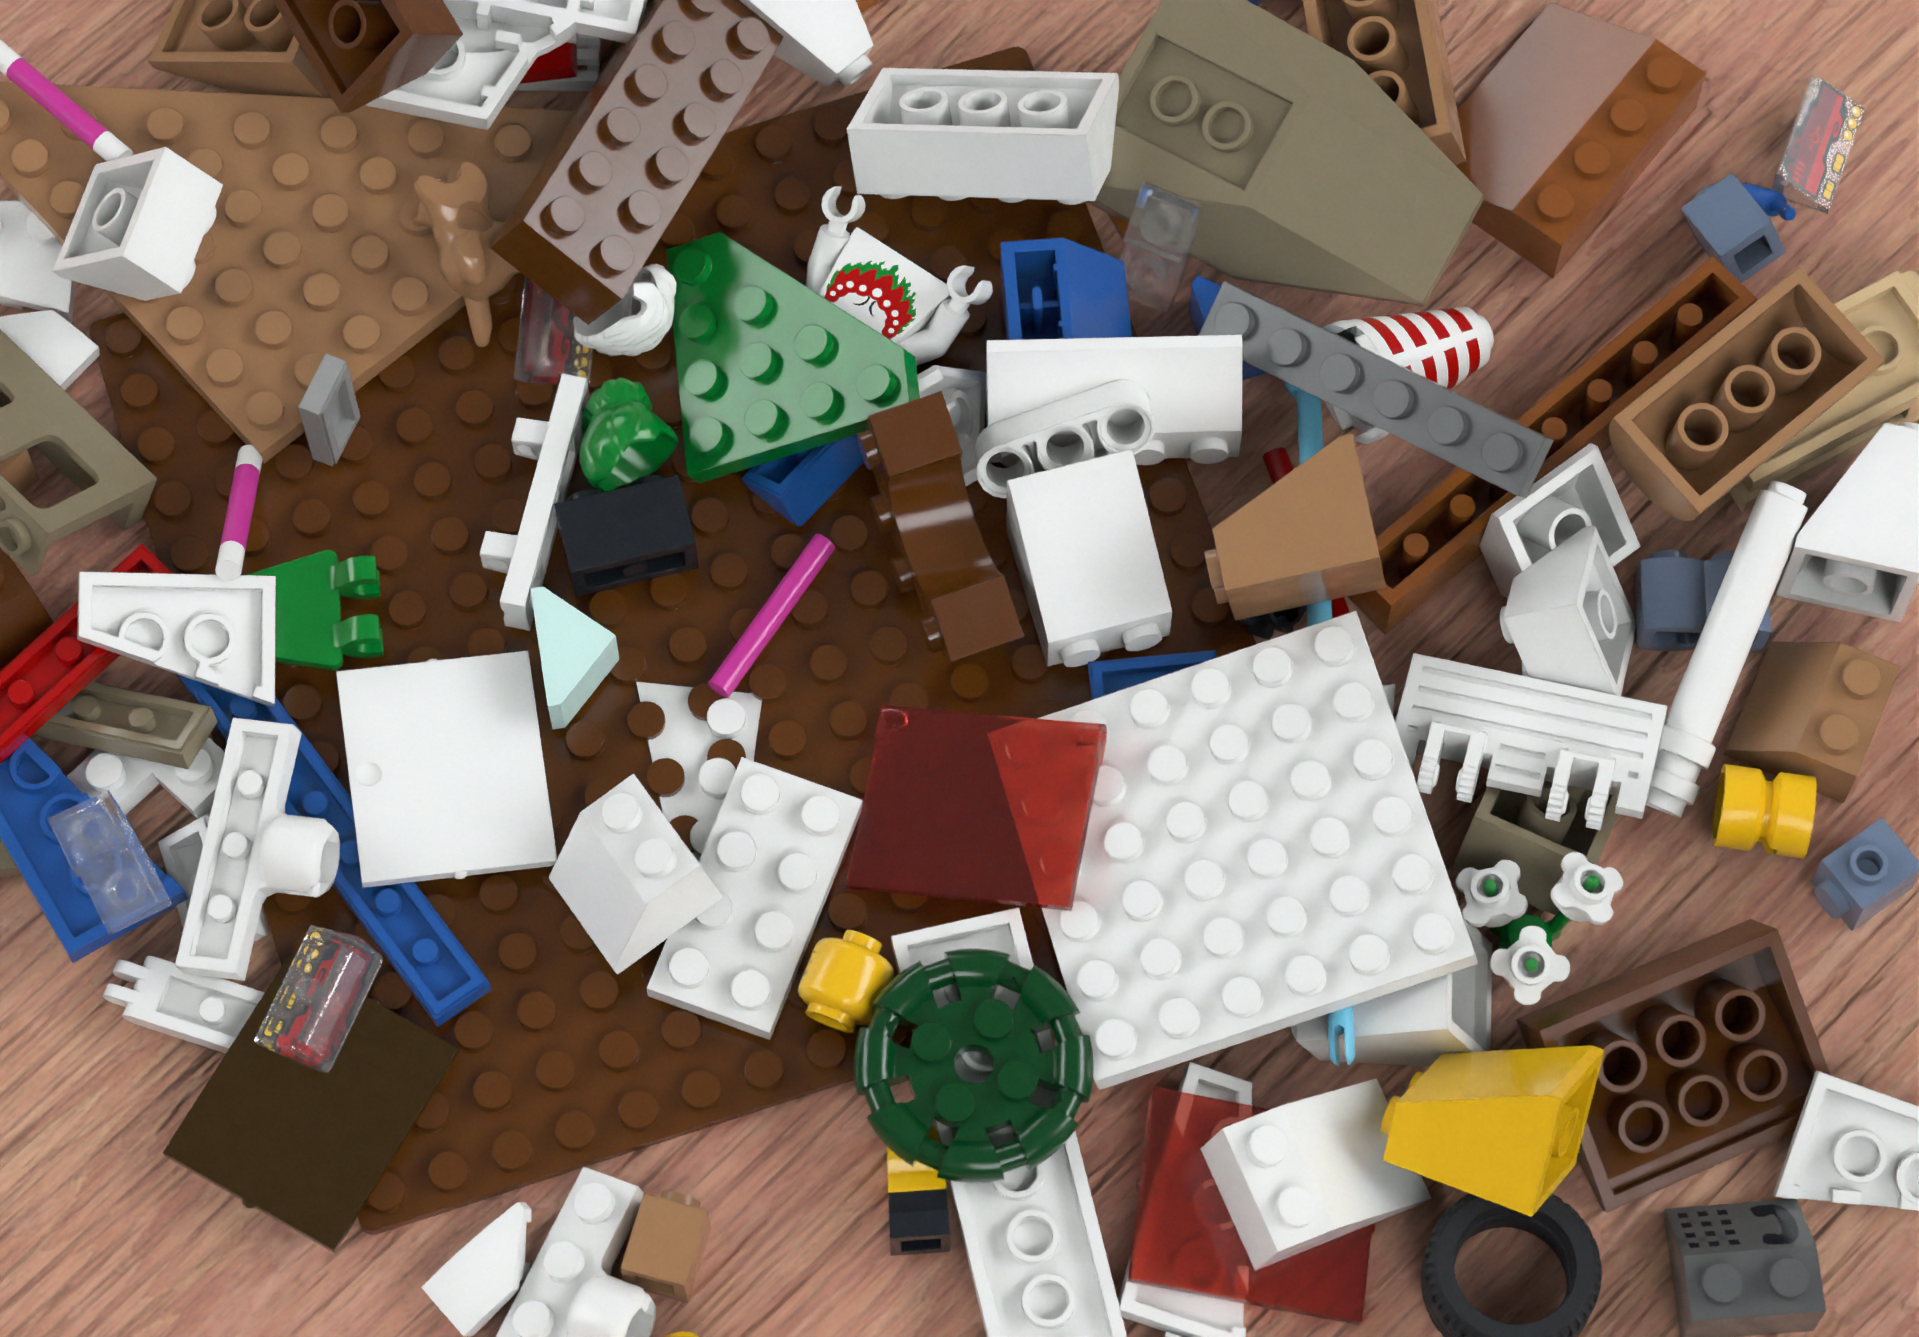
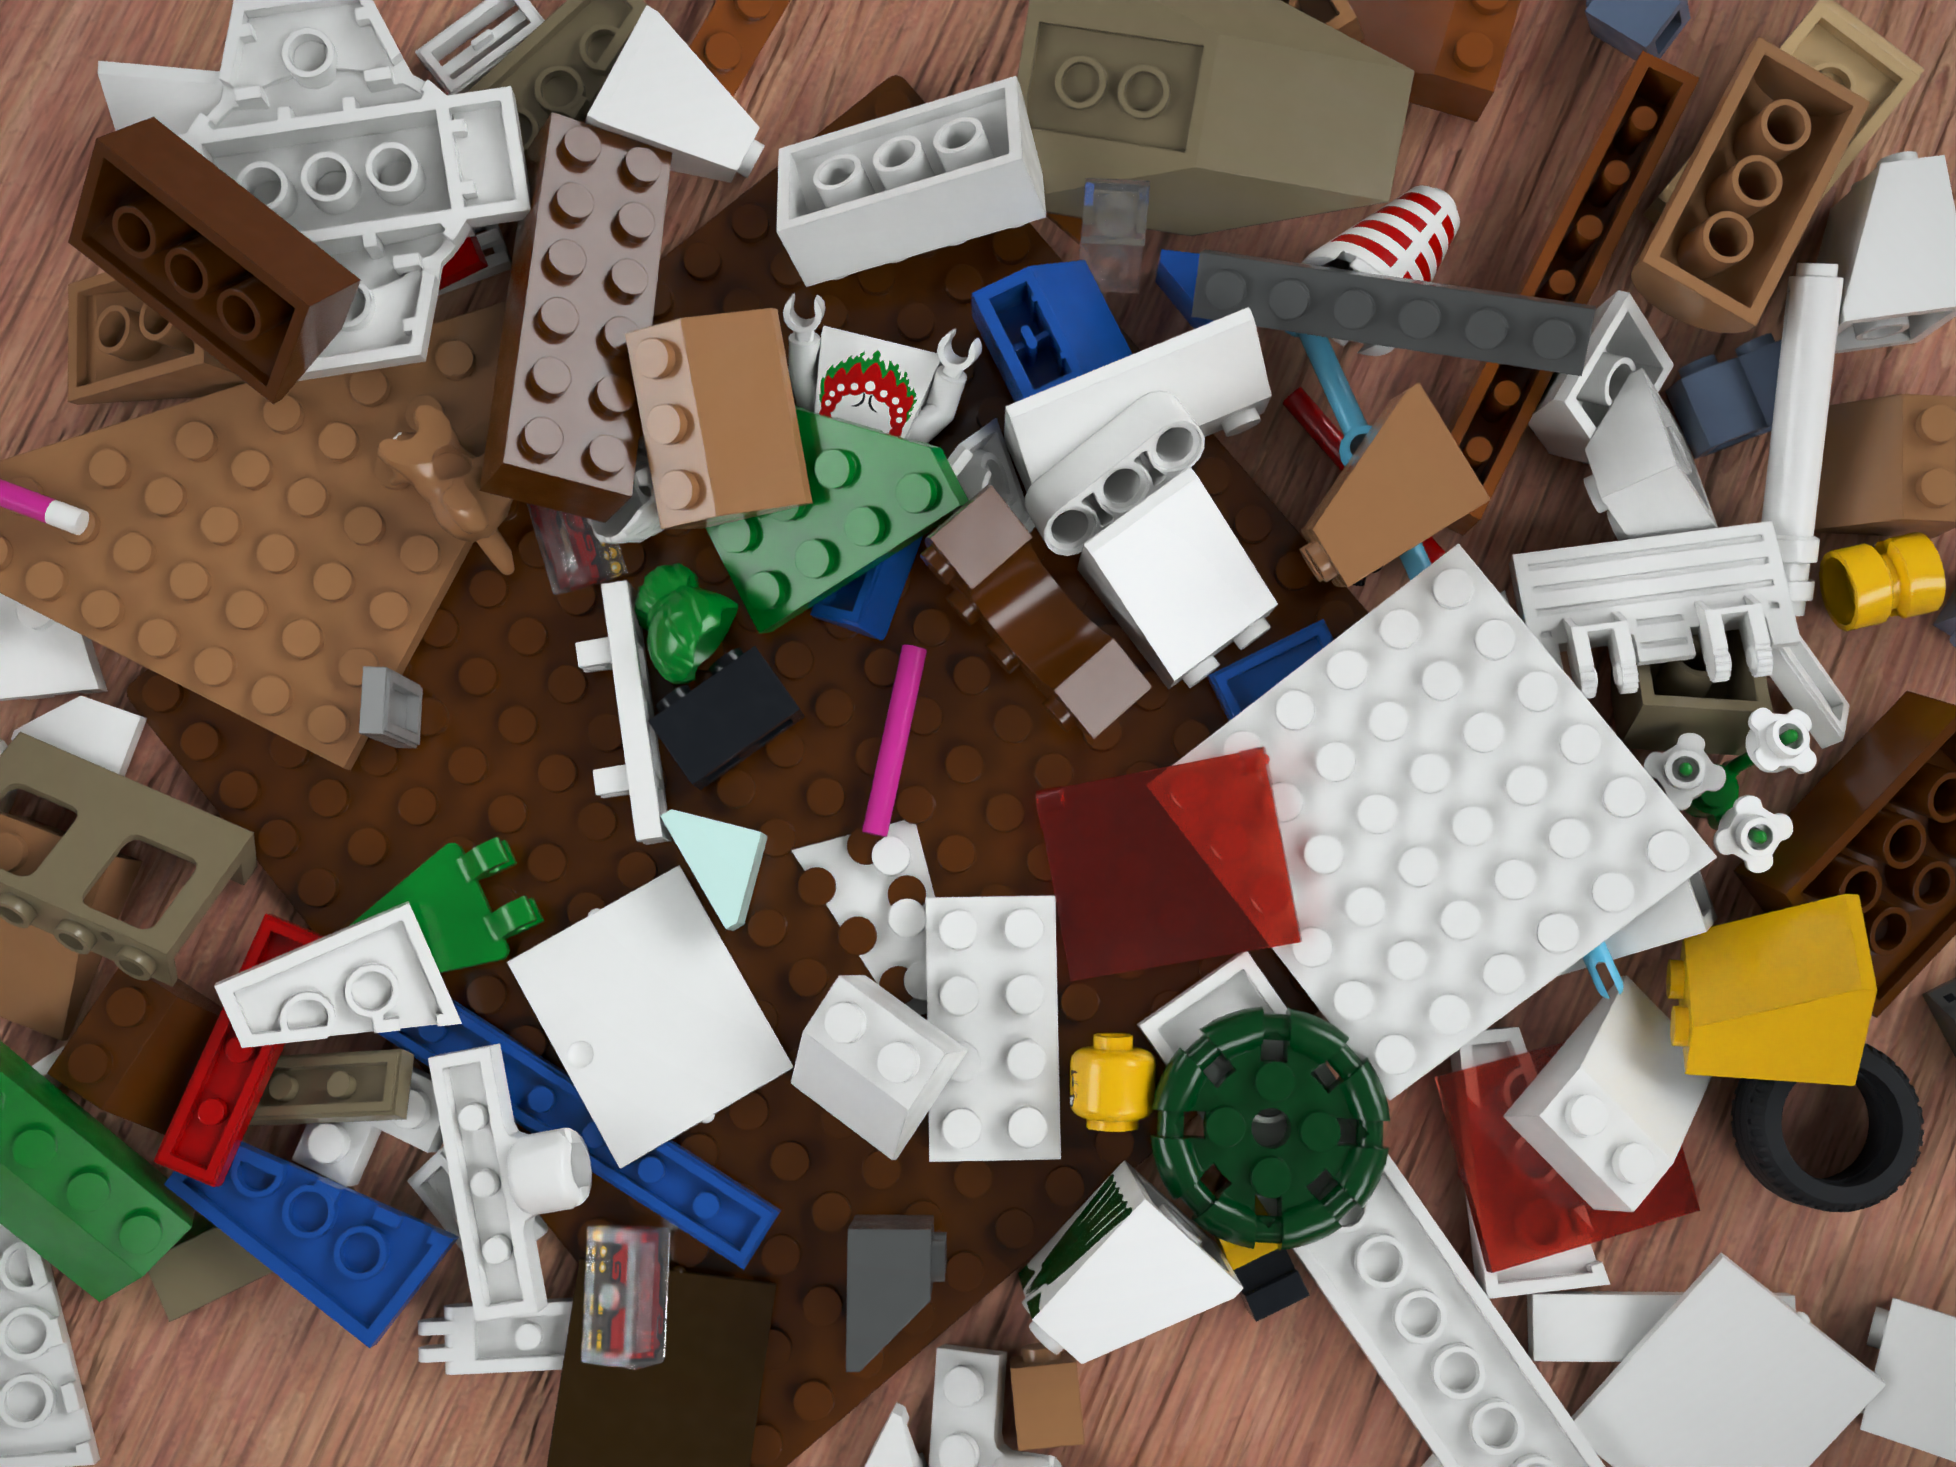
camera: 20 degrees left, 15 degrees up
(110, 861) = (369, 1252): clear slope -> none
(140, 225) = (126, 589): white slope -> none
(239, 513) = (347, 848): bar -> none
(565, 1062) = (888, 1279): none -> dark grey slope
(726, 265) = (718, 418): none -> medium nougat slope
(784, 1139) = (1122, 1271): none -> white slope
(1649, 870) = (1811, 691): none -> white tile

